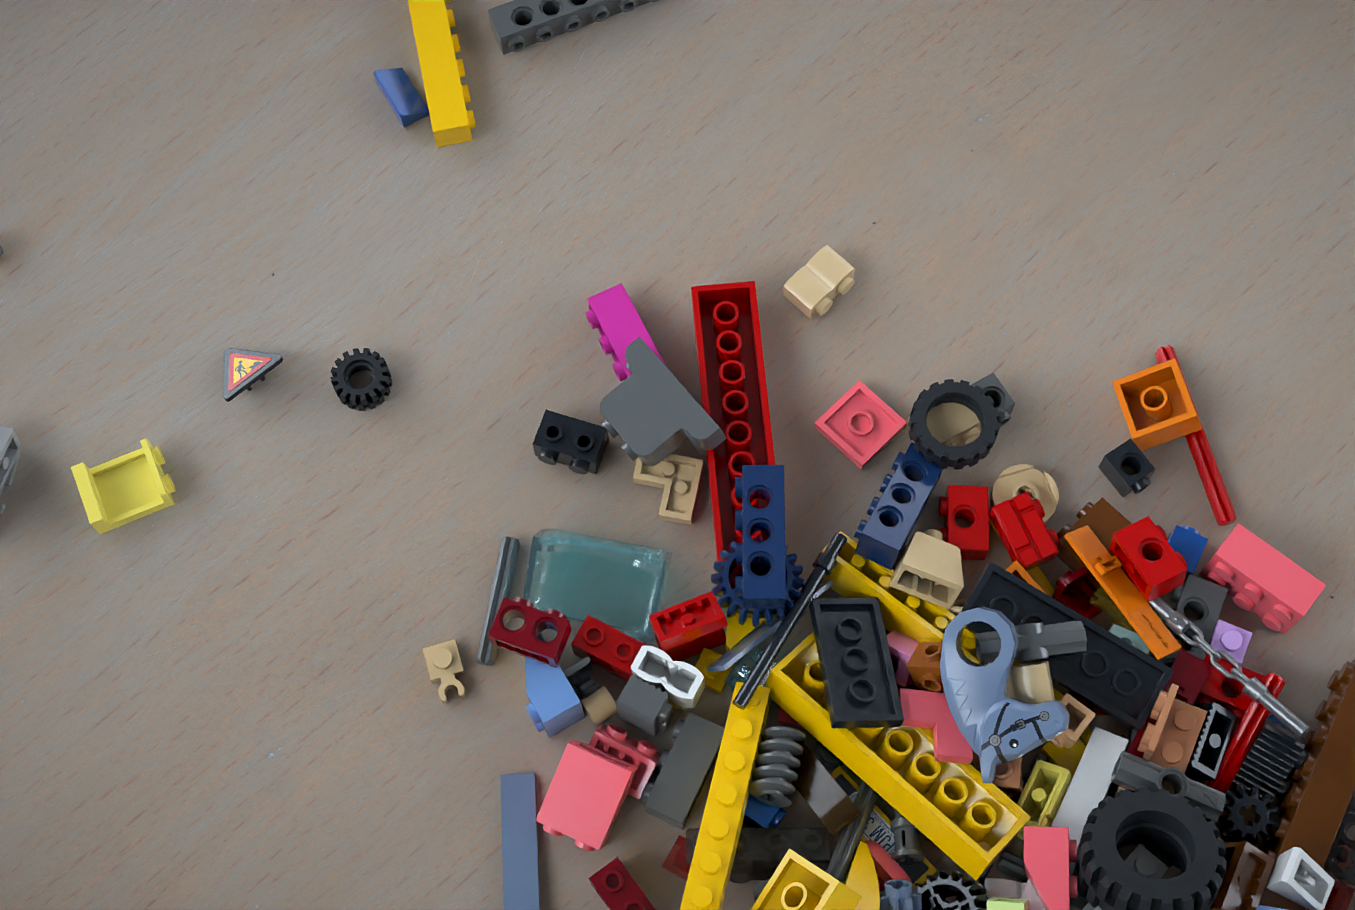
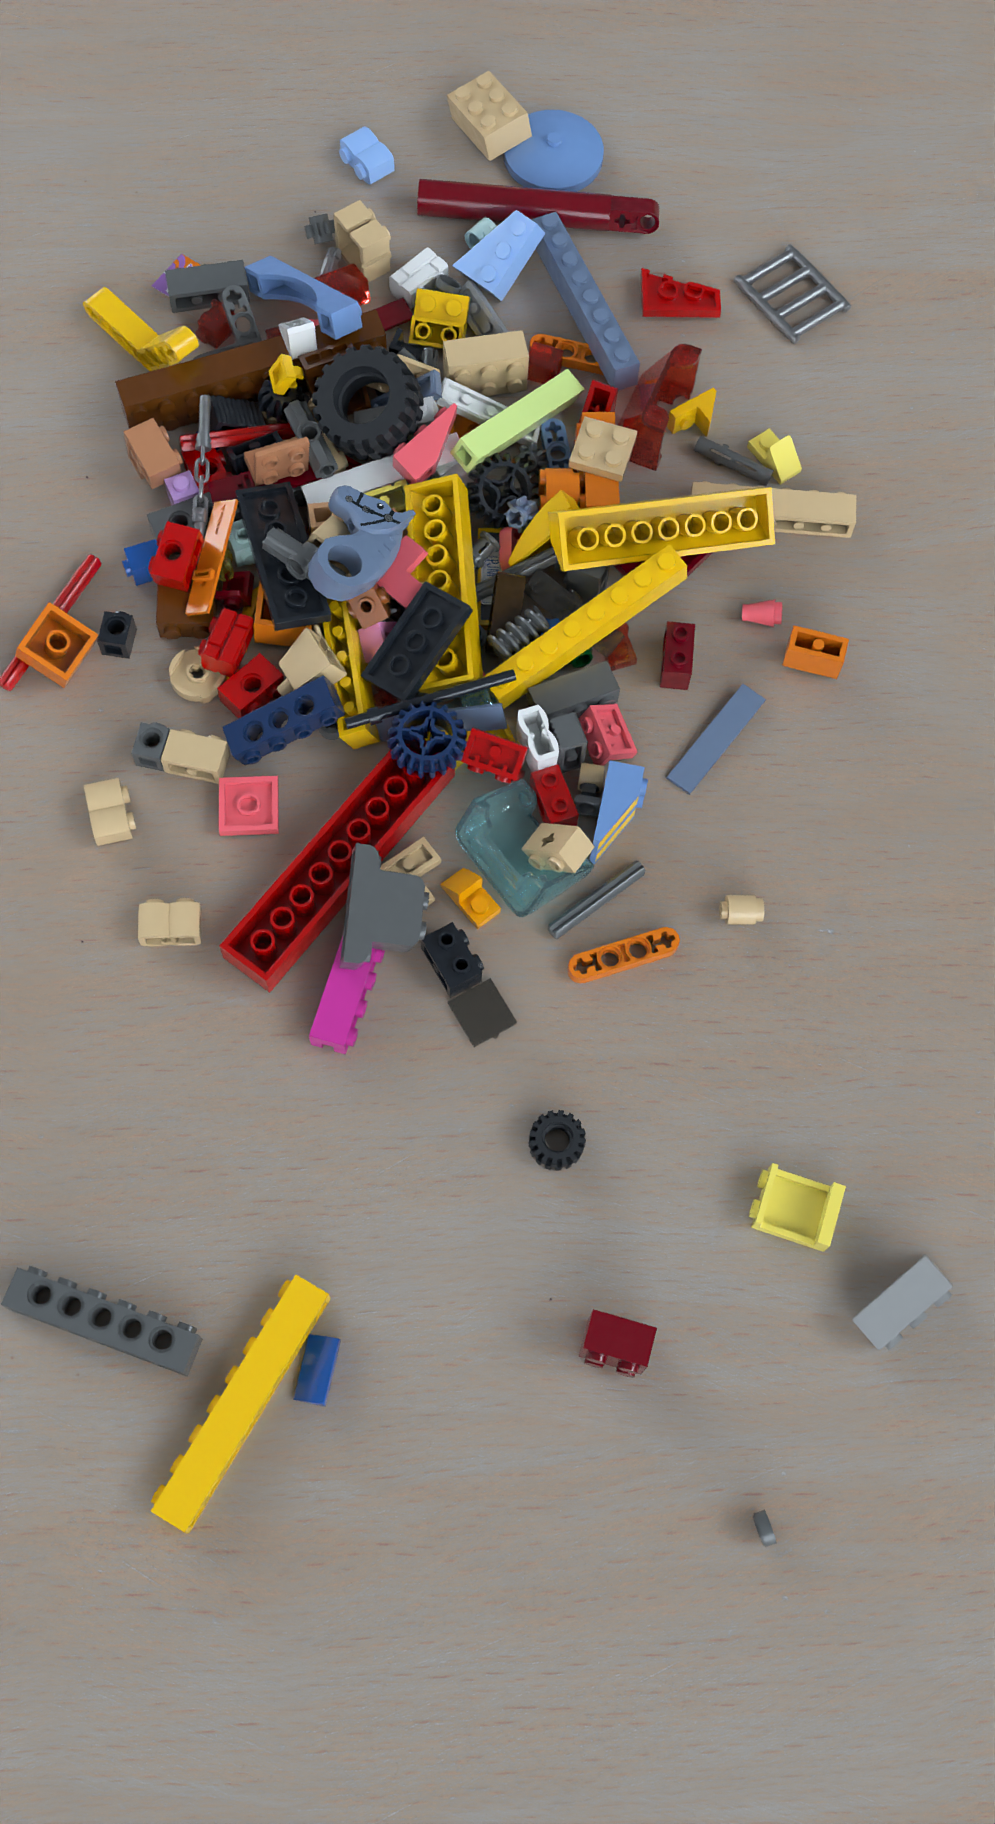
camera: 145 degrees left, 0 degrees up
(188, 267) = (617, 1343): none -> dark red brick
(245, 368) = (638, 1221): piece -> none
(361, 696) = (741, 909): none -> tan brick
(430, 570) = (625, 959): none -> orange beam
(445, 665) = (668, 888): tan plate -> none
(509, 430) = (482, 1012): none -> clear smoke piece
(526, 639) = (612, 816): dark red brick -> none
(563, 591) = (558, 848): none -> tan brick
(586, 795) = (648, 725): coral brick -> none
(607, 511) = (471, 898): none -> light orange slope
(768, 484) = (428, 708): dark blue brick -> none
(953, 393) = (189, 709): black tyre -> none
(962, 322) = (109, 812): none -> tan brick
(1261, 822) = (284, 374): none -> yellow tile
(1262, 580) = (122, 500): coral brick -> none
(1290, 644) = (151, 453): none -> nougat brick

